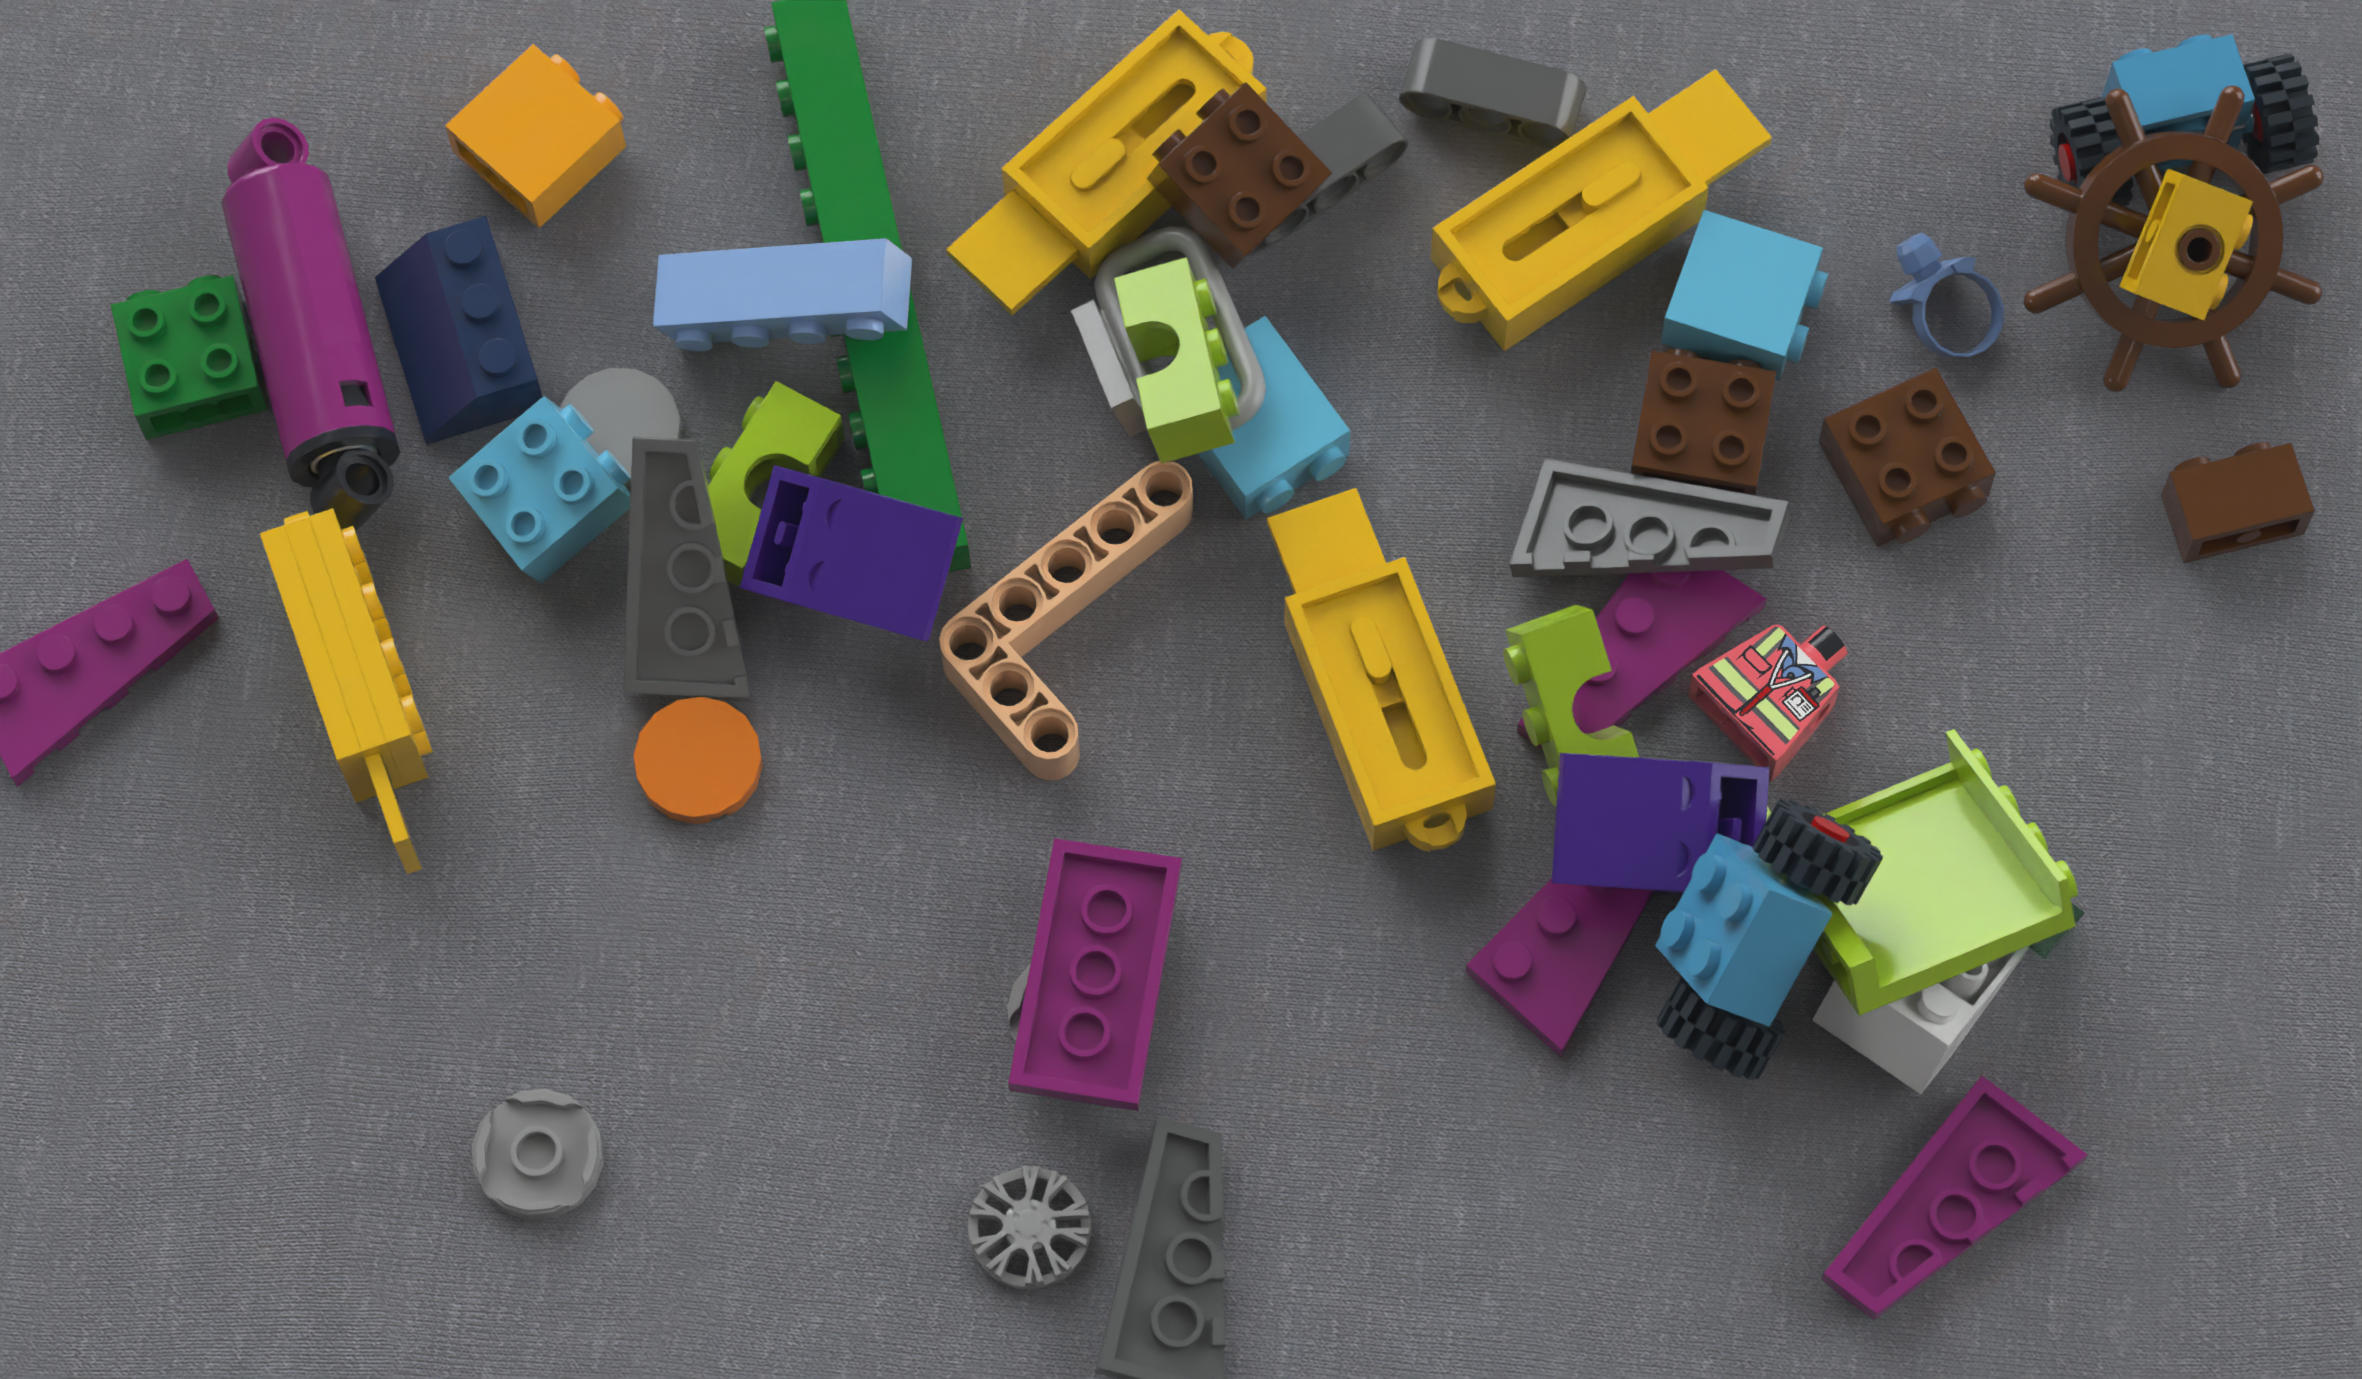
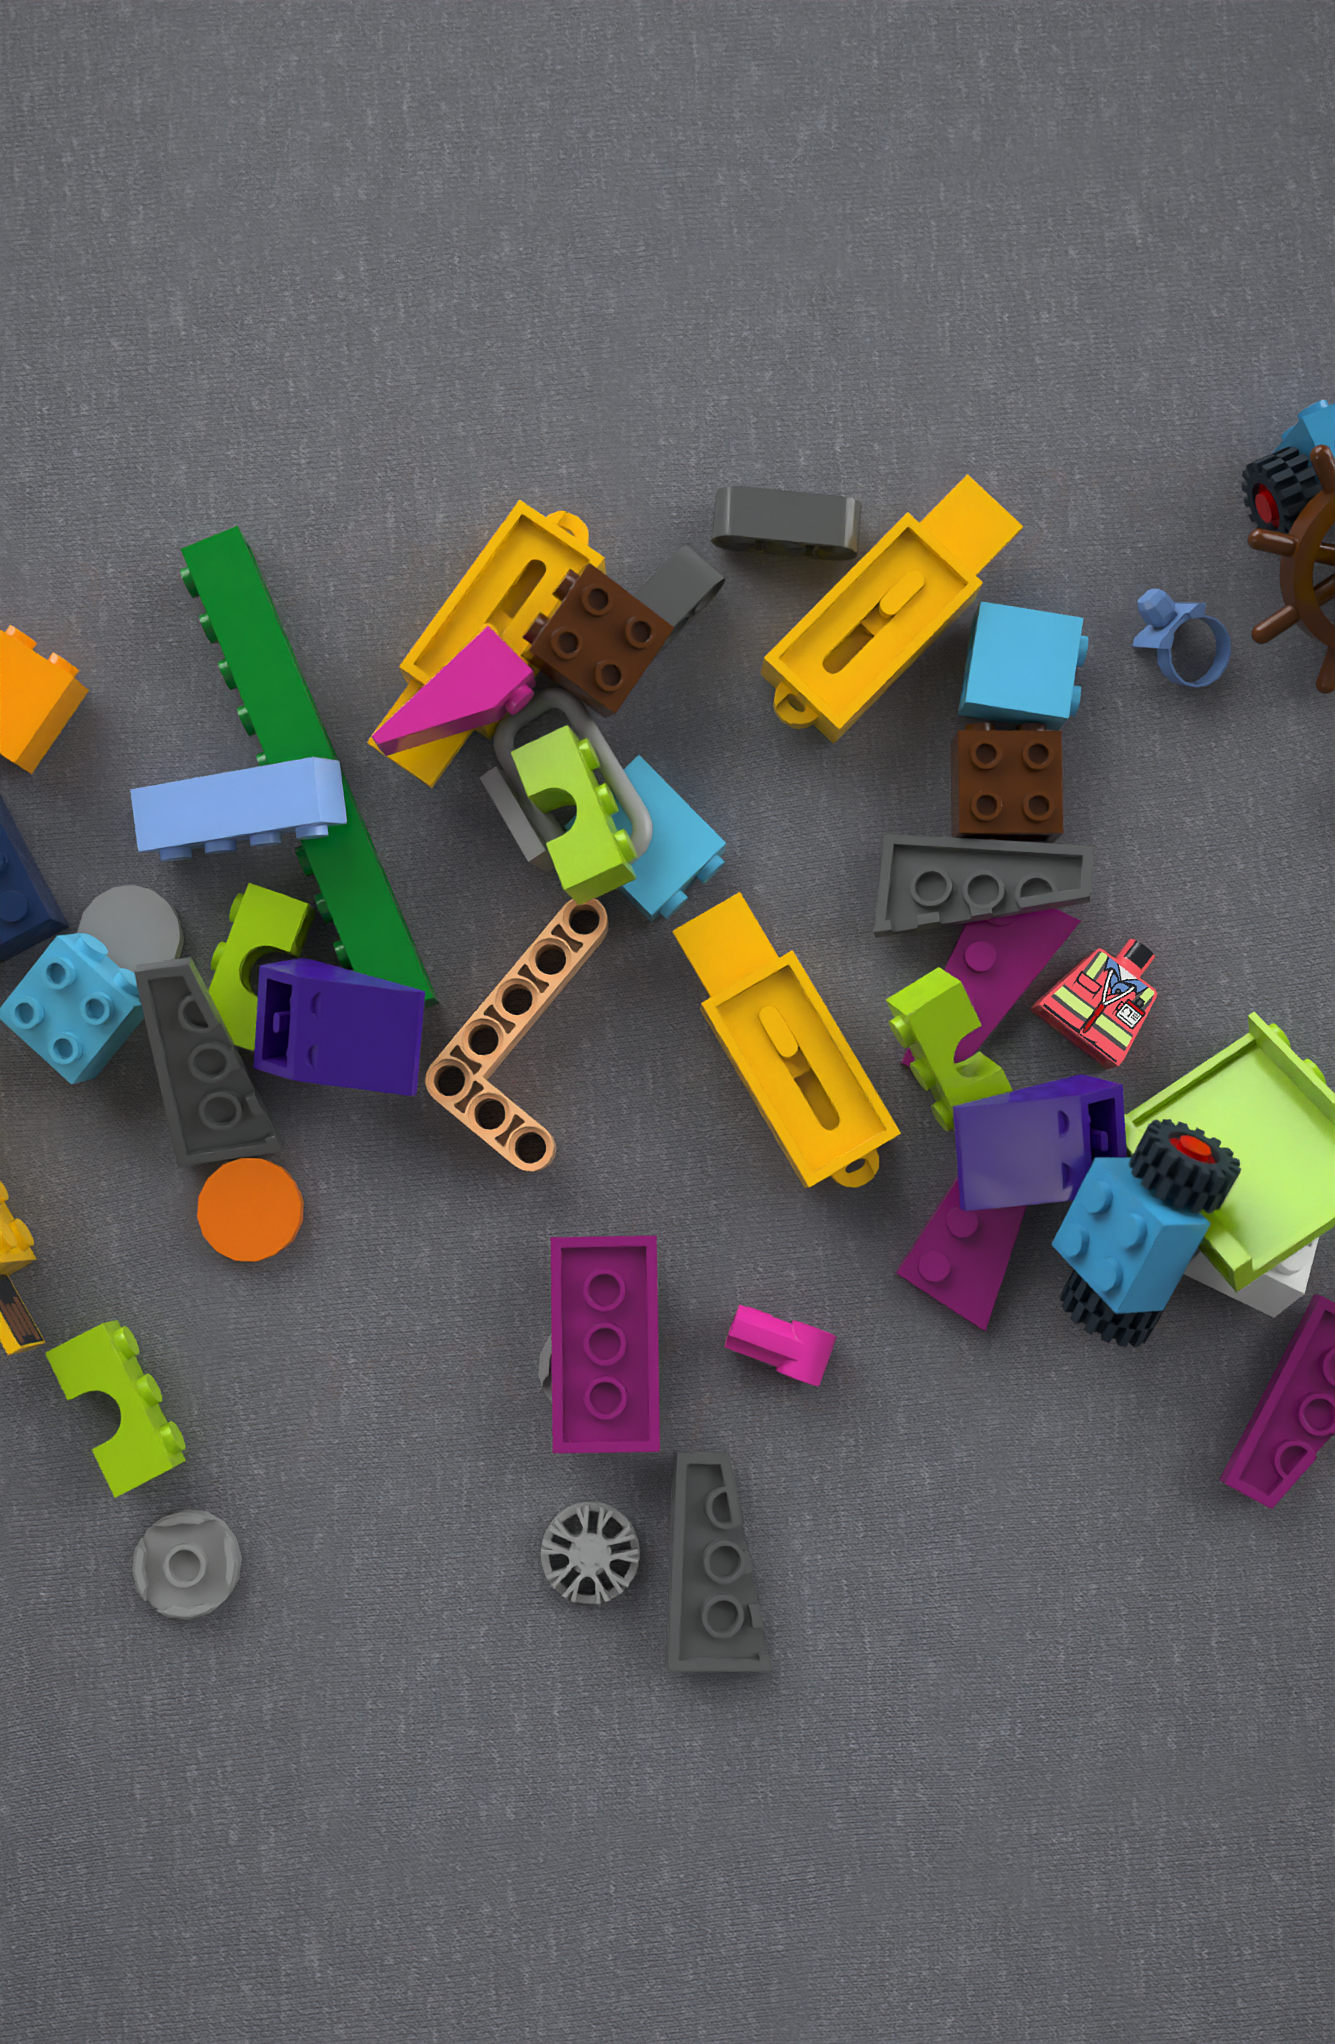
camera: 15 degrees left, 15 degrees up
(511, 1003) = (107, 1363): none -> lime arch
(1069, 208) = (465, 694): none -> dark pink slope
(1323, 1028) = (791, 1347): none -> dark pink piece
(1907, 458) = (1175, 783): reddish brown brick -> none

